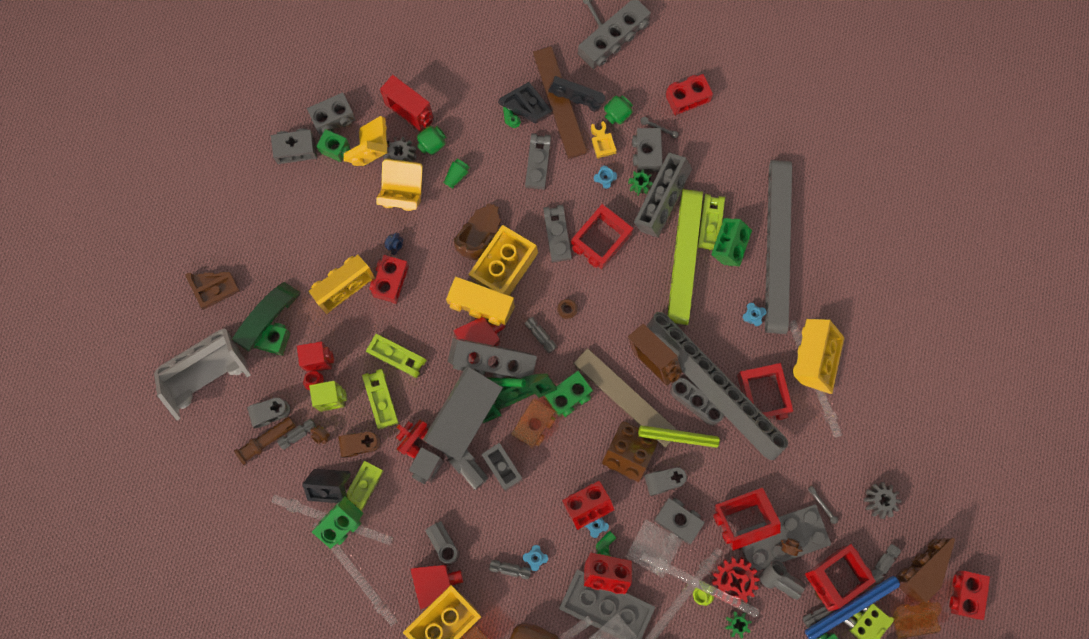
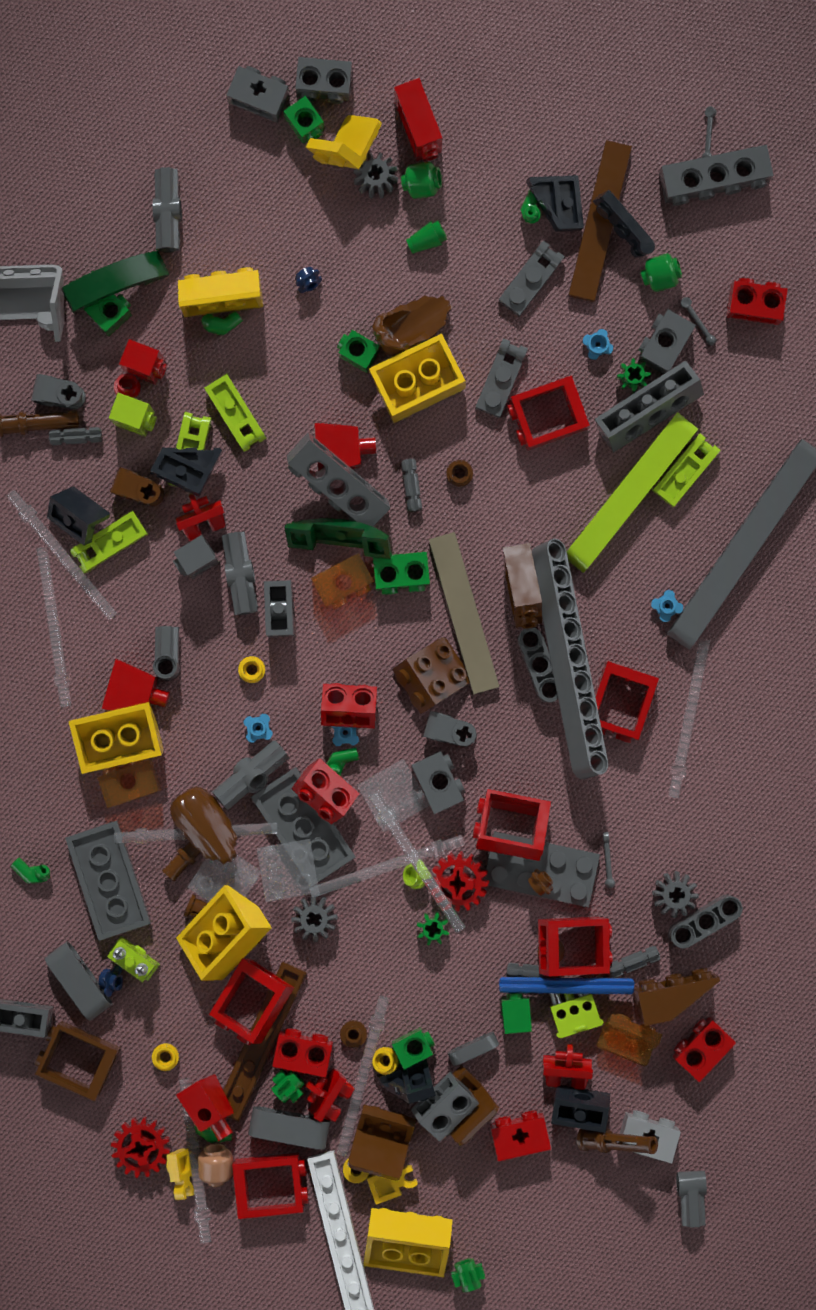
camera: 30 degrees right, 10 degrees up
(212, 287) = (73, 210): reddish brown wing -> none
(275, 252) = (167, 209): none -> dark grey piece
(319, 435) = (100, 452): reddish brown plate -> none
(337, 522) = (72, 561): green brick -> none
(353, 305) = (219, 325): none -> green arm
(384, 409) = (186, 467): none -> black wing
(393, 279) = (283, 324): red brick -> none
(400, 184) = (354, 215): yellow bracket -> none
(459, 261) = (363, 361): none -> green brick
(462, 413) = (269, 524): dark grey tile -> none
(480, 301) = (363, 409): yellow slope -> none
(500, 520) = (251, 660): none -> yellow plate
(509, 382) = (326, 508): green bar -> none
(510, 569) = (223, 723): dark grey axle -> none
(549, 593) = (250, 775): none -> dark grey piece
(602, 143) = (619, 301): yellow plate -> none
(679, 436) = (495, 691): lime axle -> none
(731, 242) = (693, 508): green brick -> none
(777, 576) = (507, 904): dark grey piece -> none
(819, 355) = (708, 695): yellow slope -> none
(922, 501) = (691, 921): none -> dark grey beam

